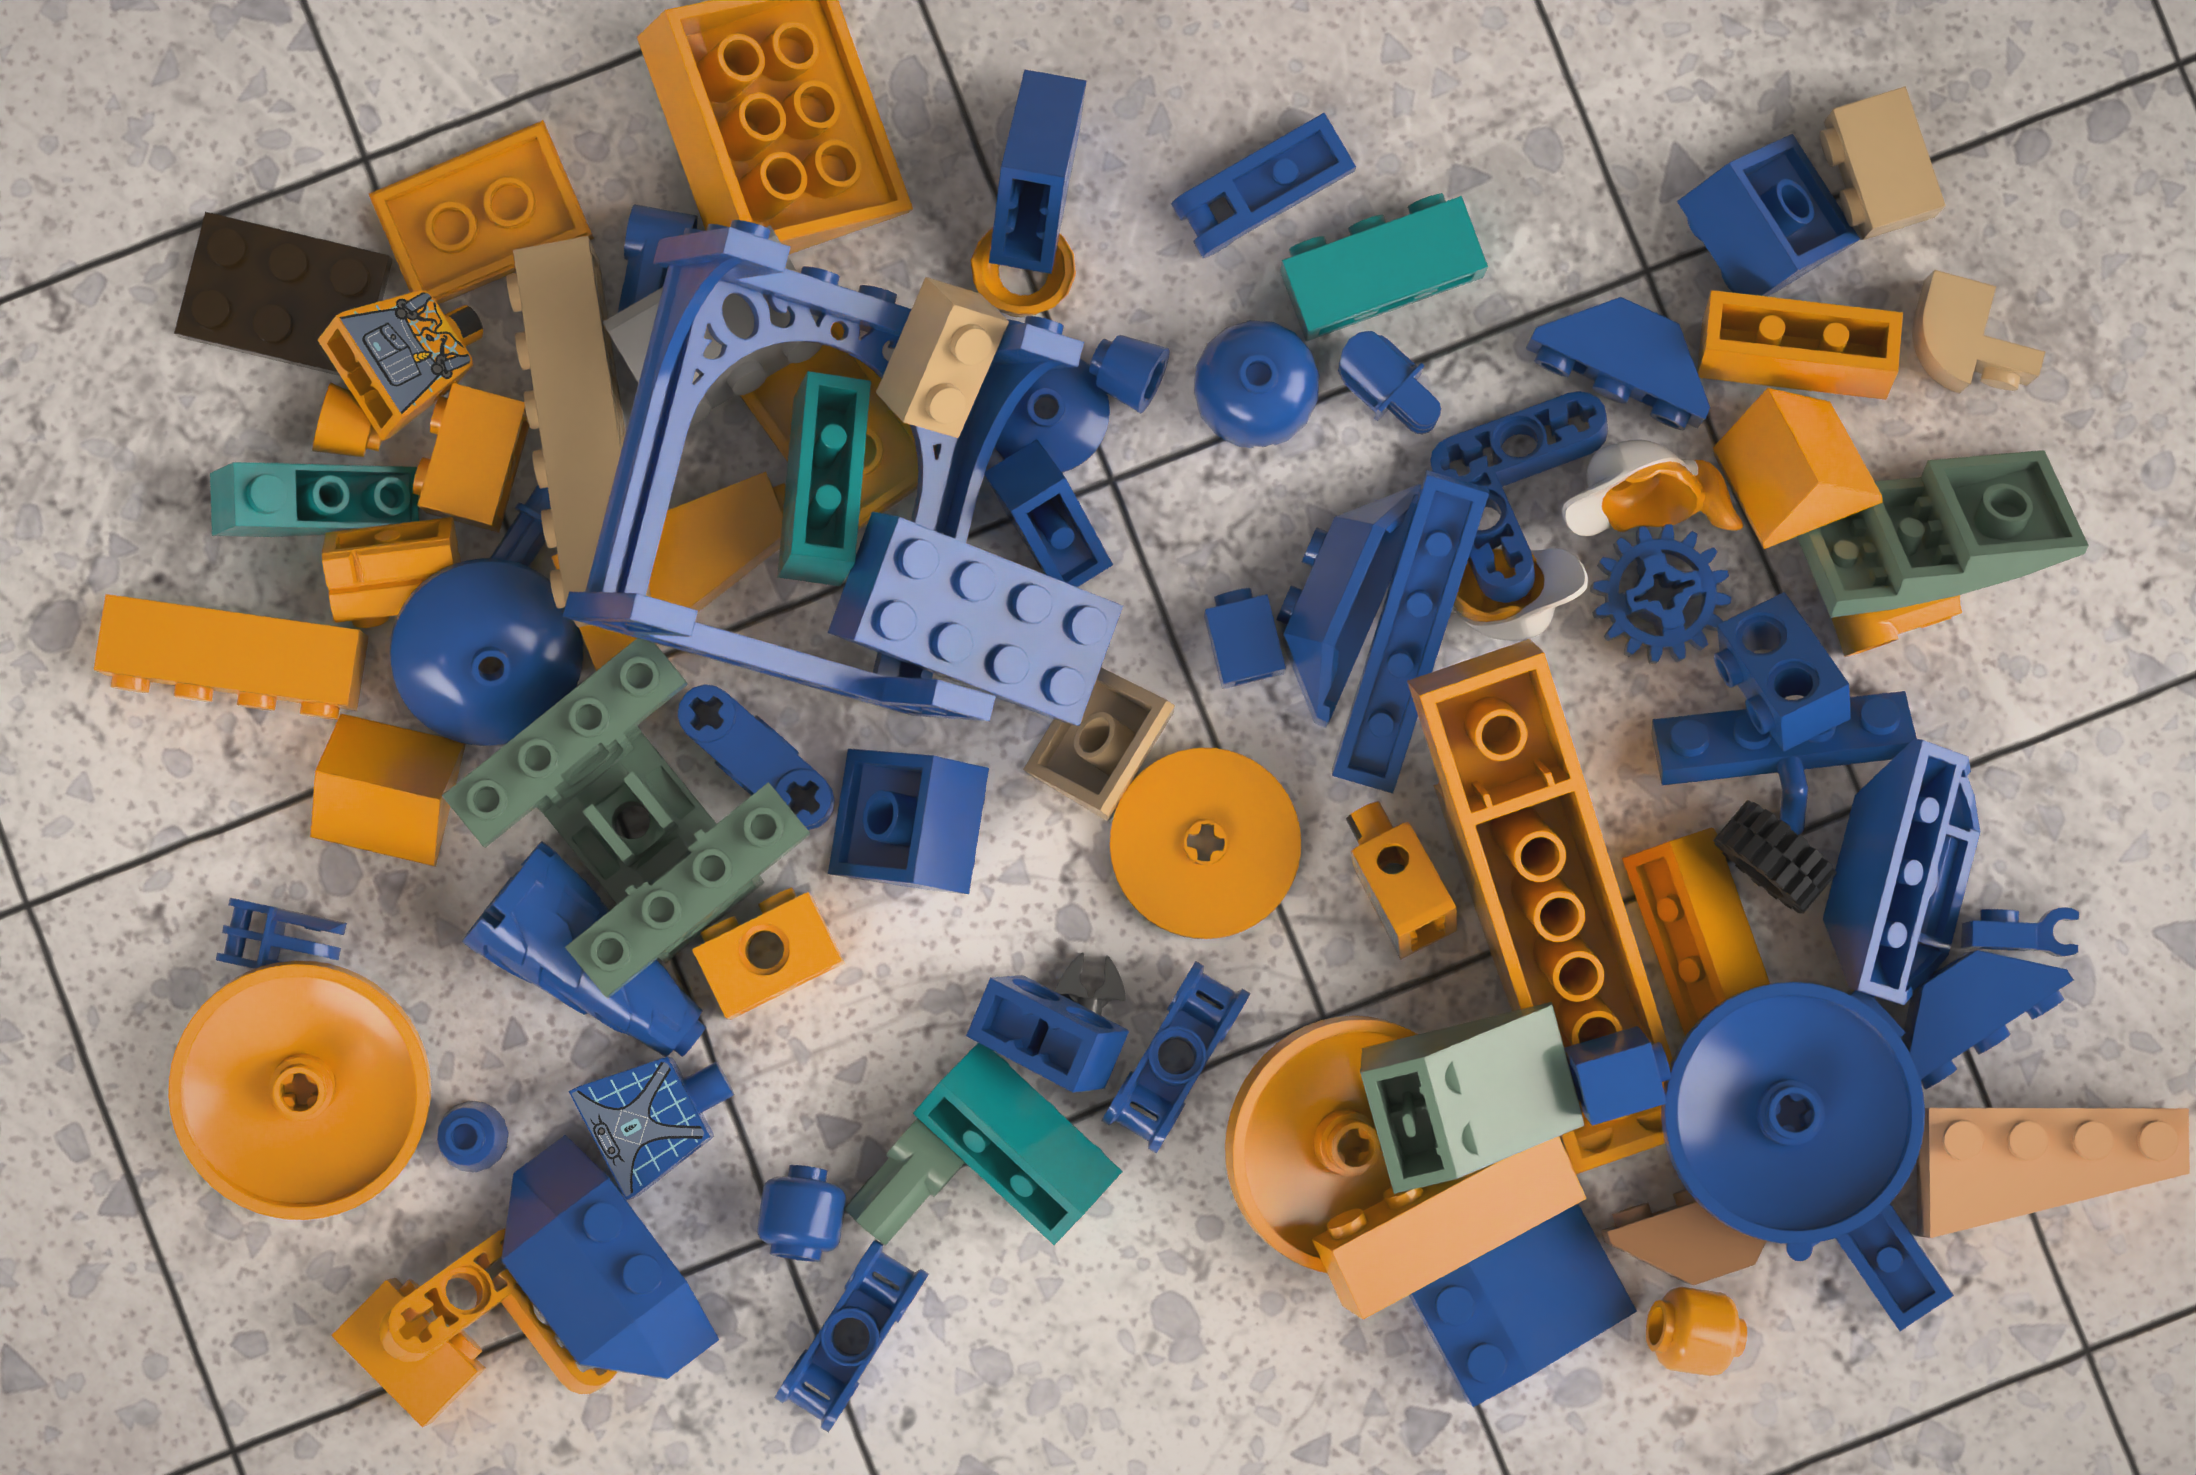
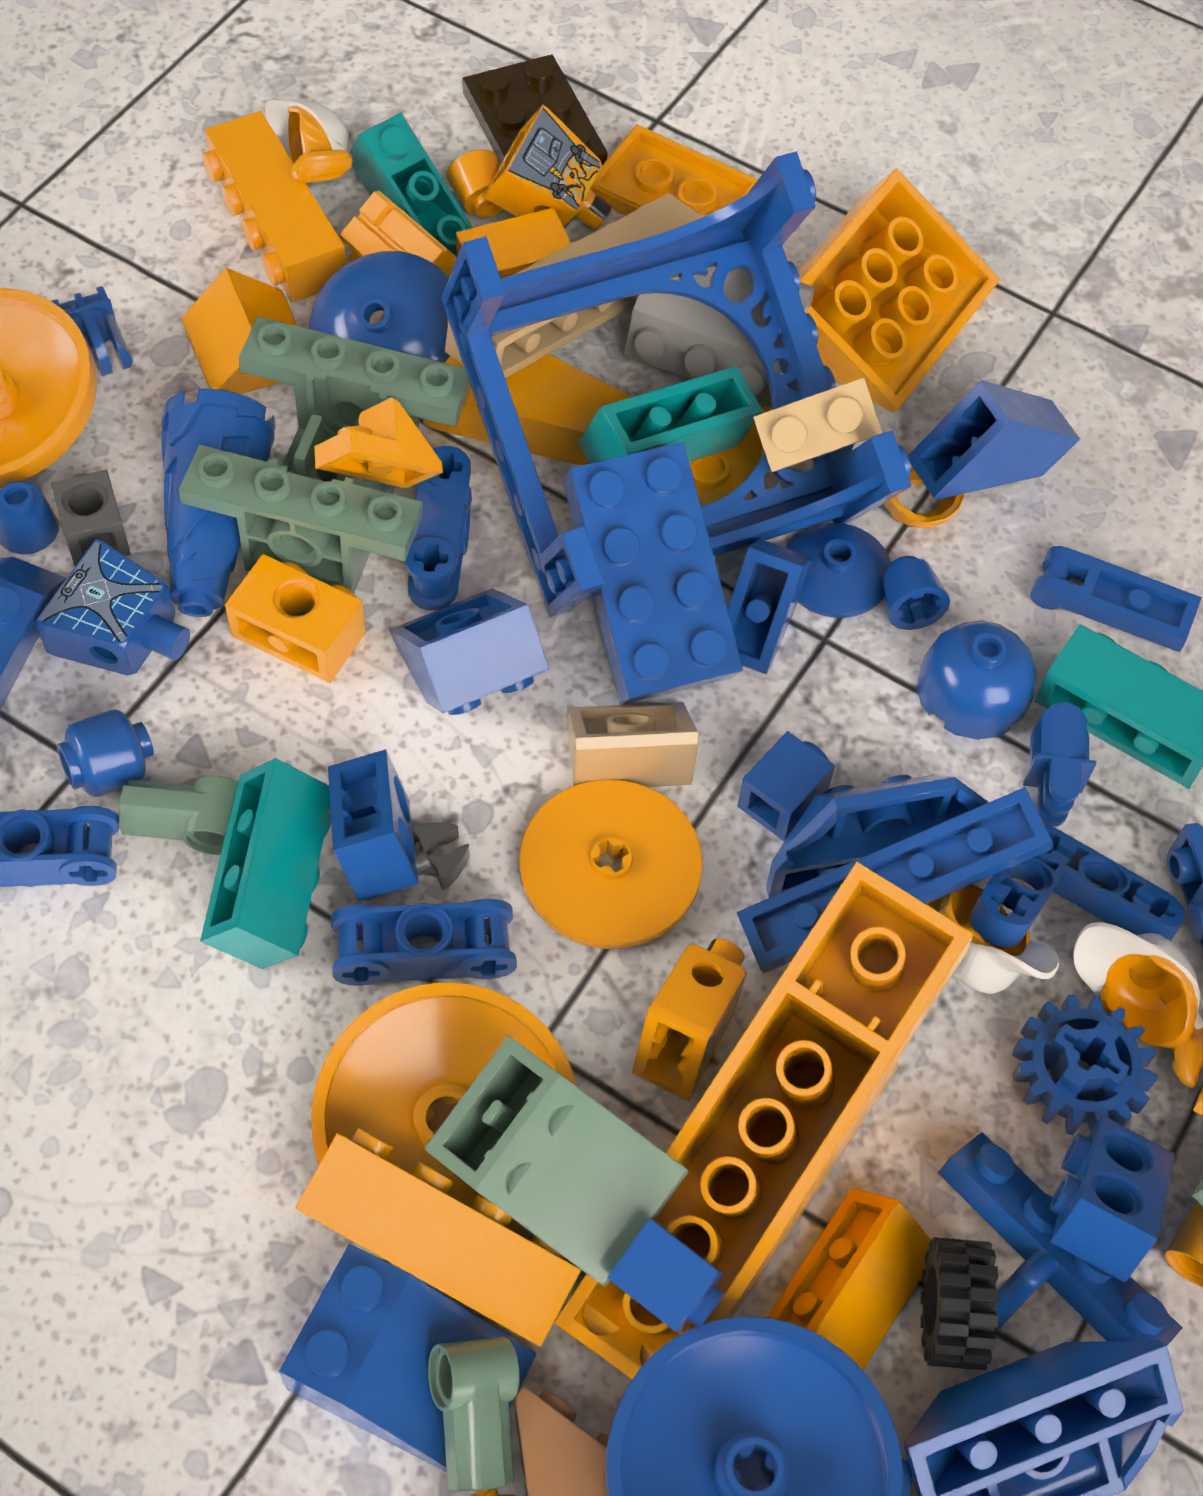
camera: 50 degrees right, 25 degrees down
(184, 562) = (312, 139): none -> light orange hair
(547, 1080) = (89, 513): none -> dark grey brick
(680, 774) = (380, 449): none -> light orange slope
(1584, 1271) = (473, 1389): none -> sand green piece

